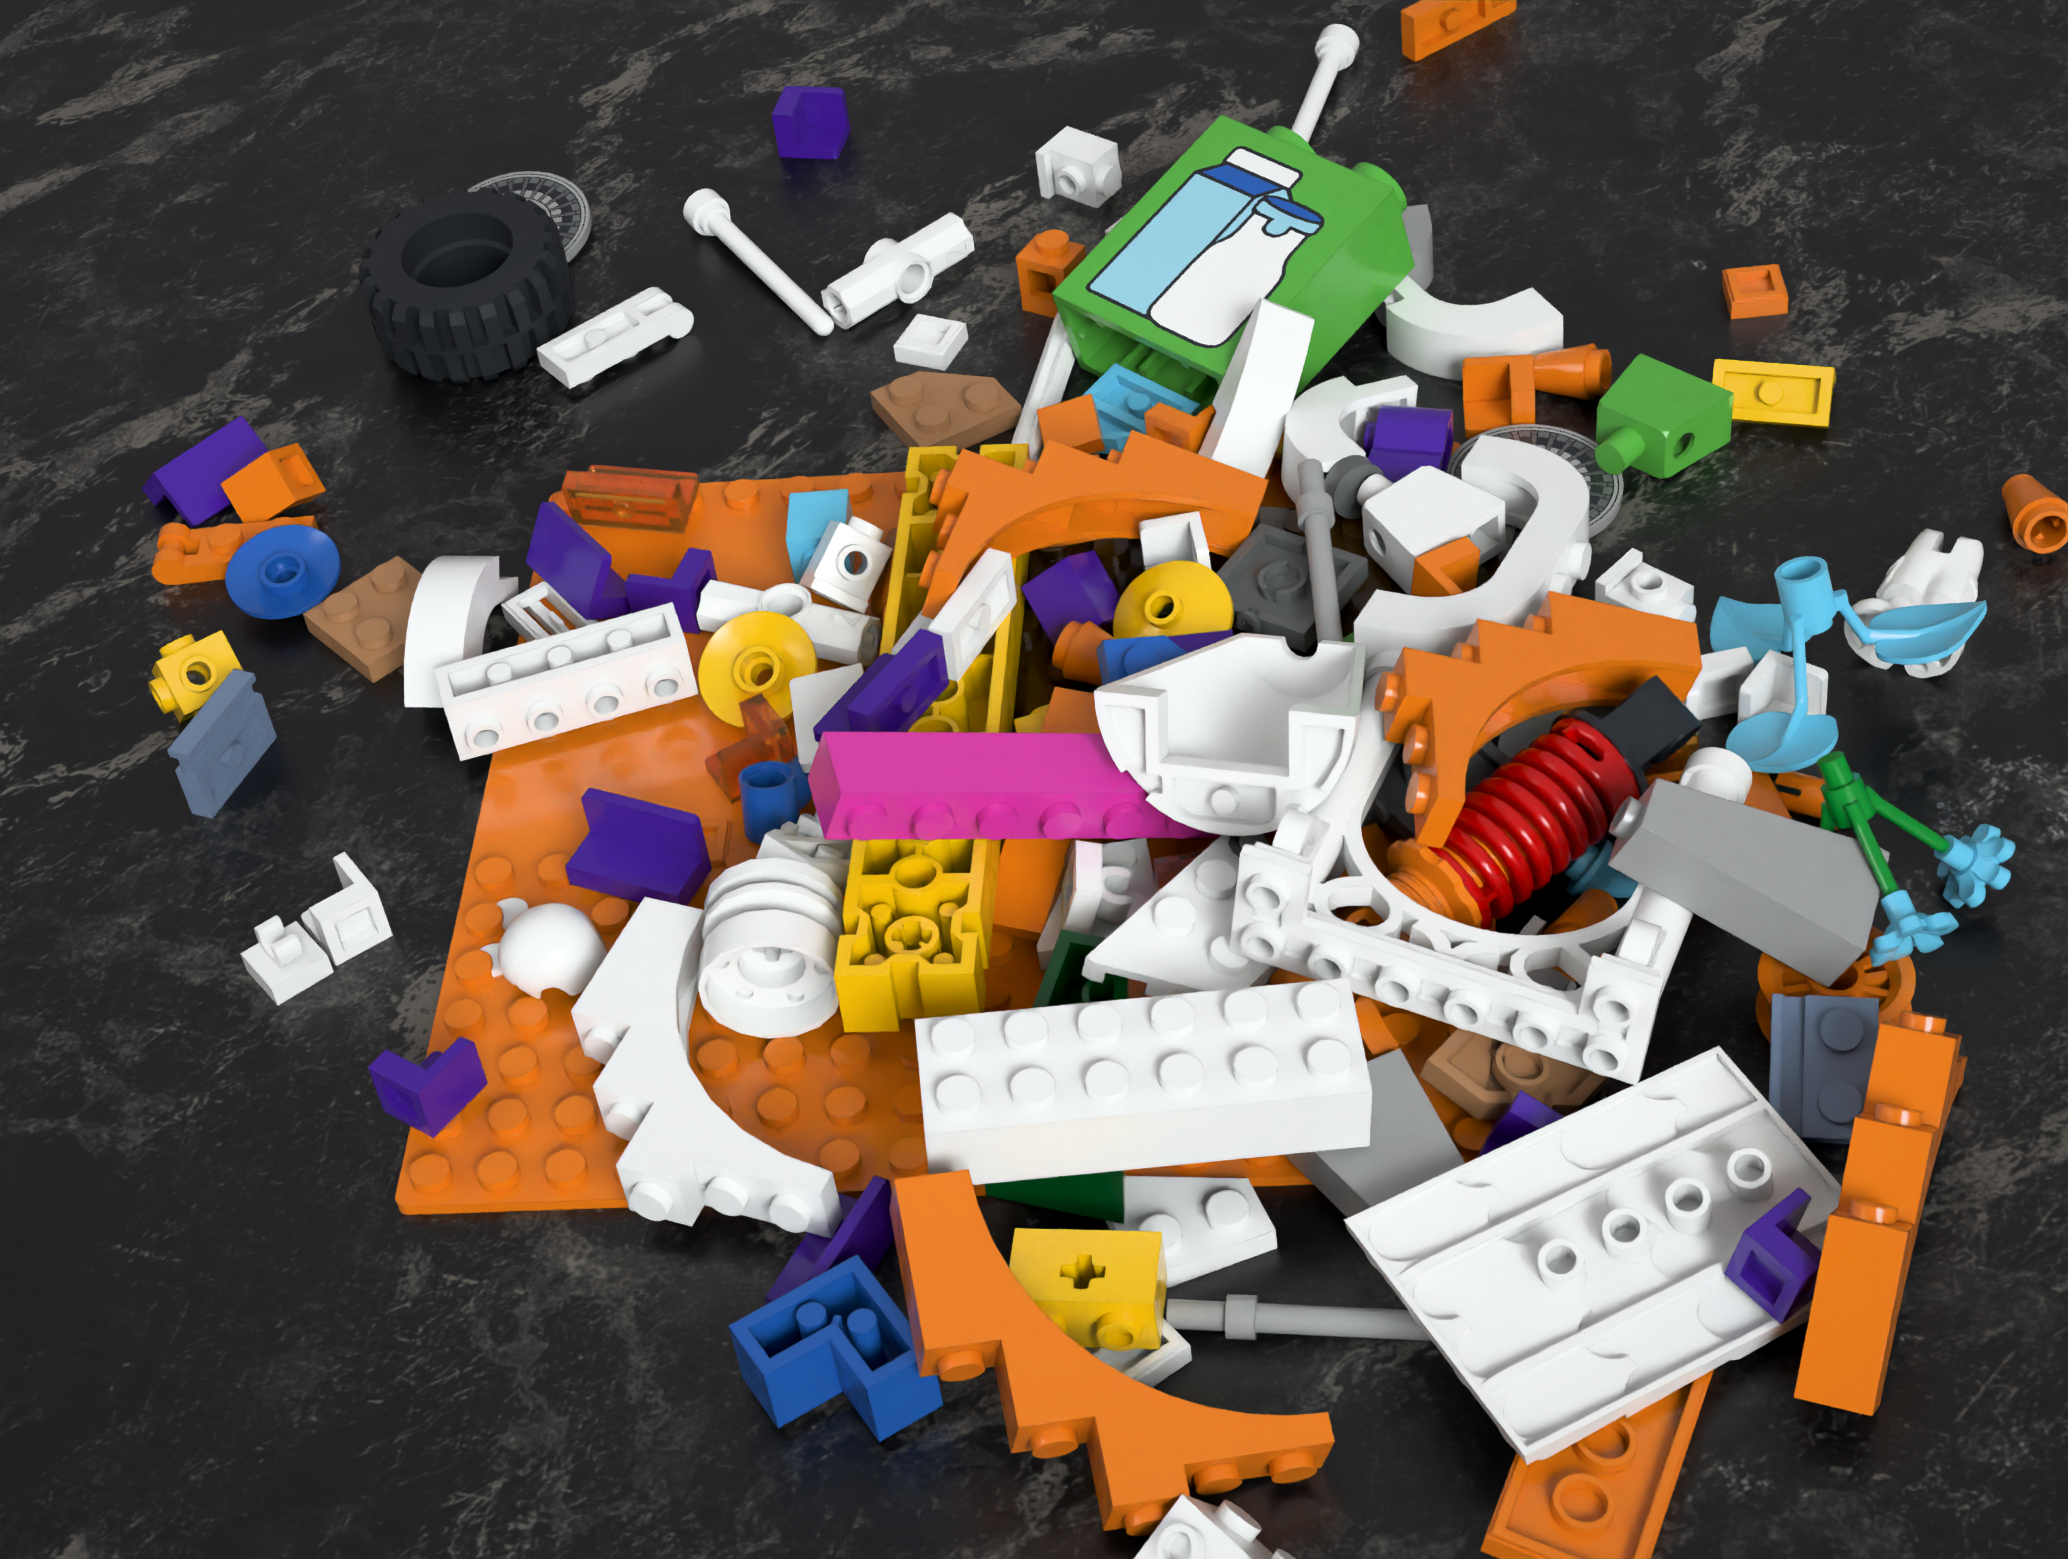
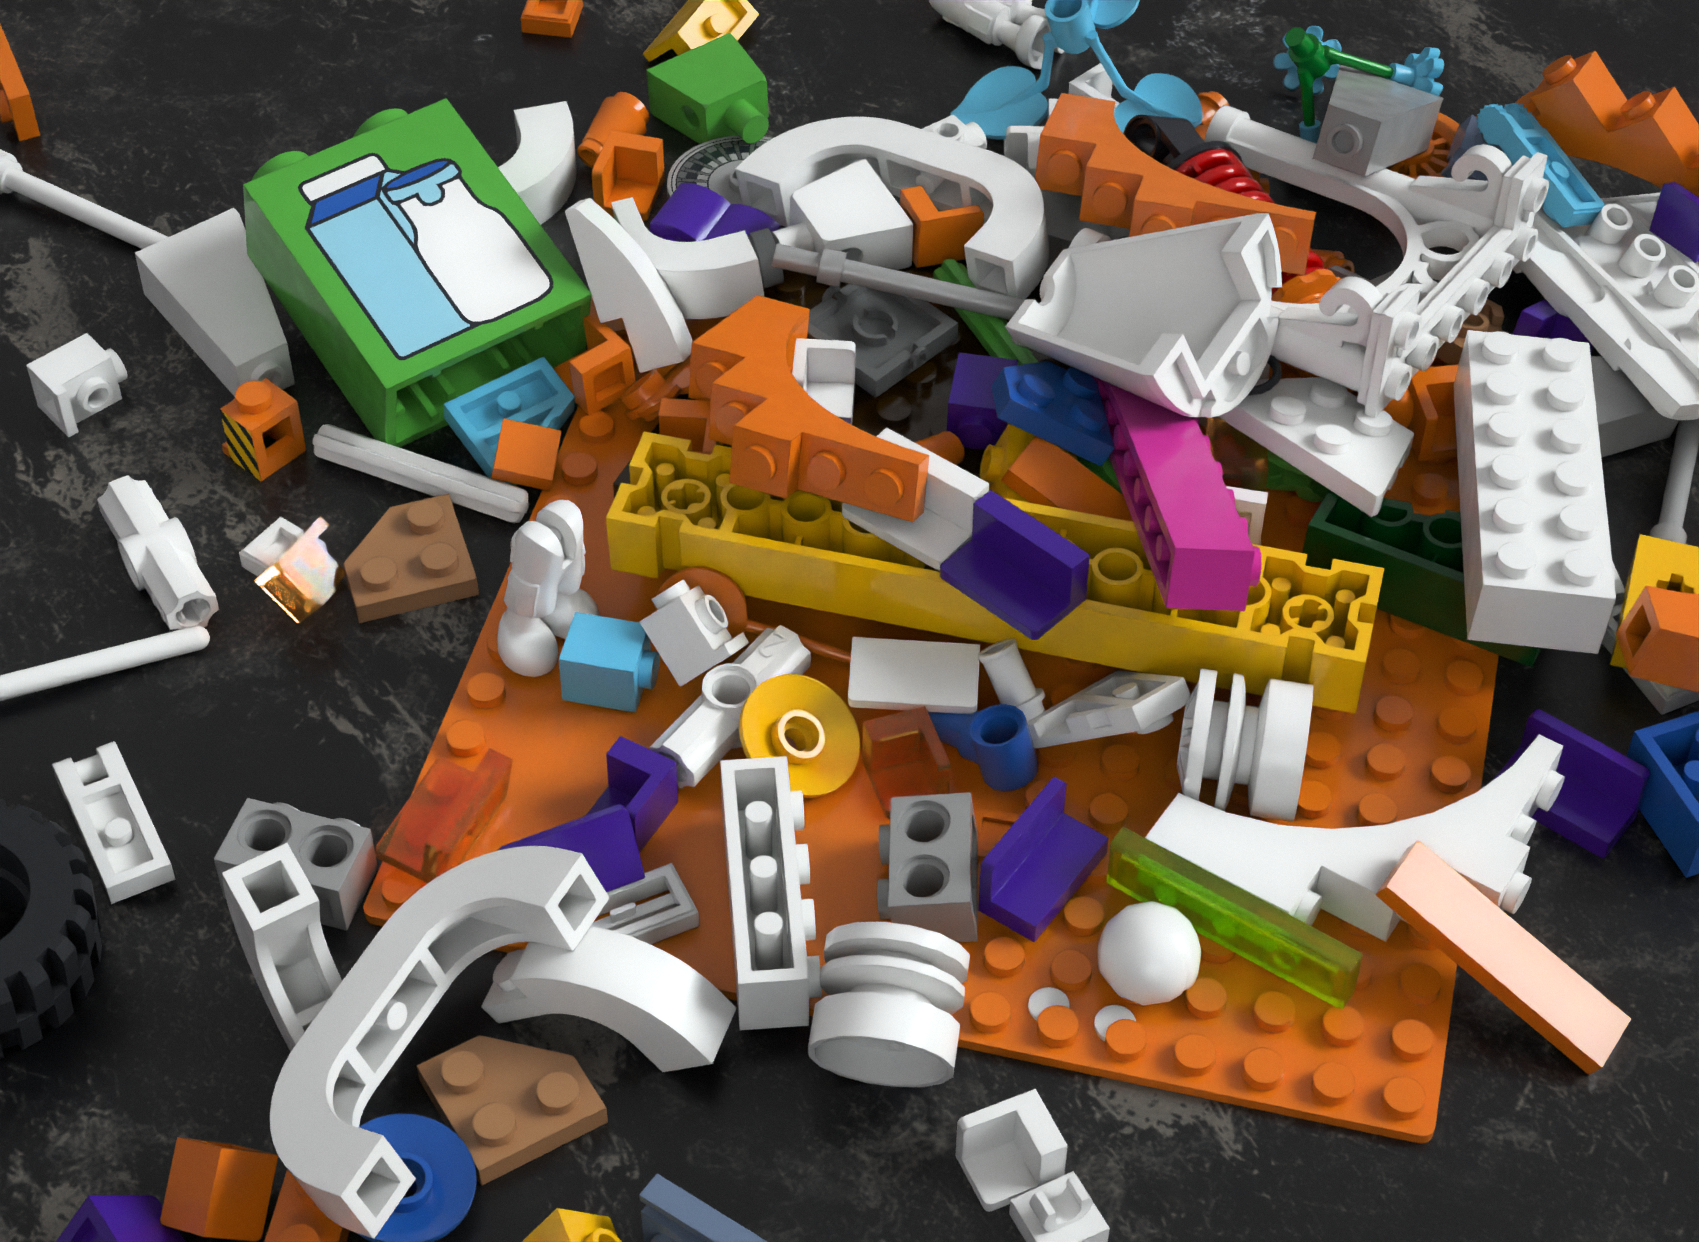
camera: 85 degrees left, 5 degrees up
(433, 1091) = (1316, 1066): dark purple panel -> none
(443, 776) = (889, 1004): none -> white wheel
(456, 450) = (282, 938): none -> white arch
(472, 503) = (385, 999): none -> white arch
(553, 1043) = (1235, 918): none -> clear neon green tile
(564, 1200) = (1503, 957): none -> tile
(581, 428) = (332, 853): none -> light grey brick
(635, 767) = (933, 855): none -> light grey brick
(860, 451) = (543, 589): none -> white piece
(888, 345) = (302, 574): none -> clear orange panel
(1198, 597) = (869, 400): yellow dish -> none
(1799, 1080) = (1518, 133): none -> medium azure hinge

